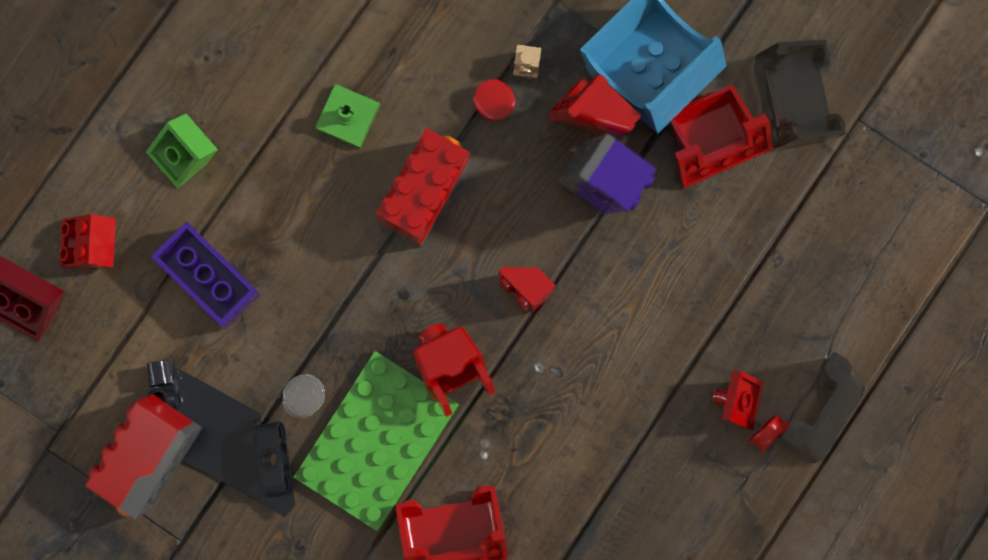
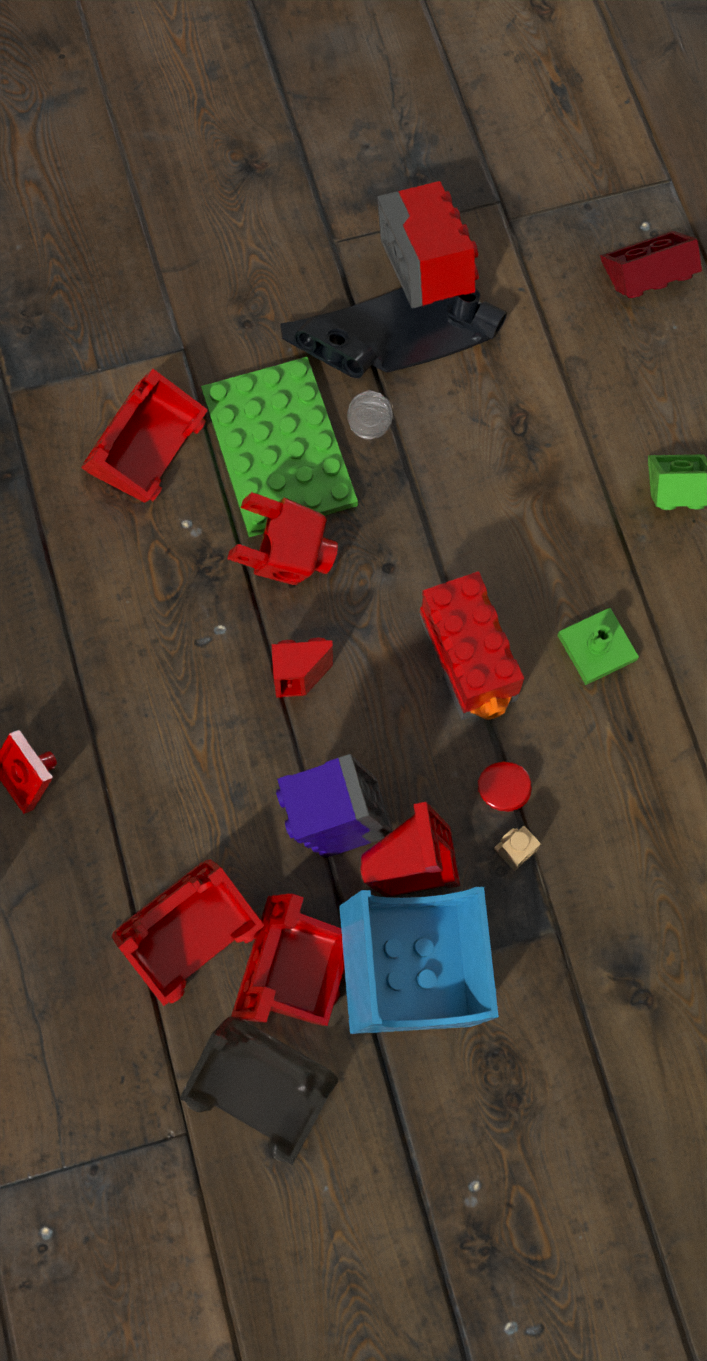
camera: 130 degrees right, 10 degrees down
(87, 242) = (656, 346): red slope -> none
(205, 275) = (546, 411): dark purple brick -> none
(748, 220) = (186, 929): none -> red windscreen

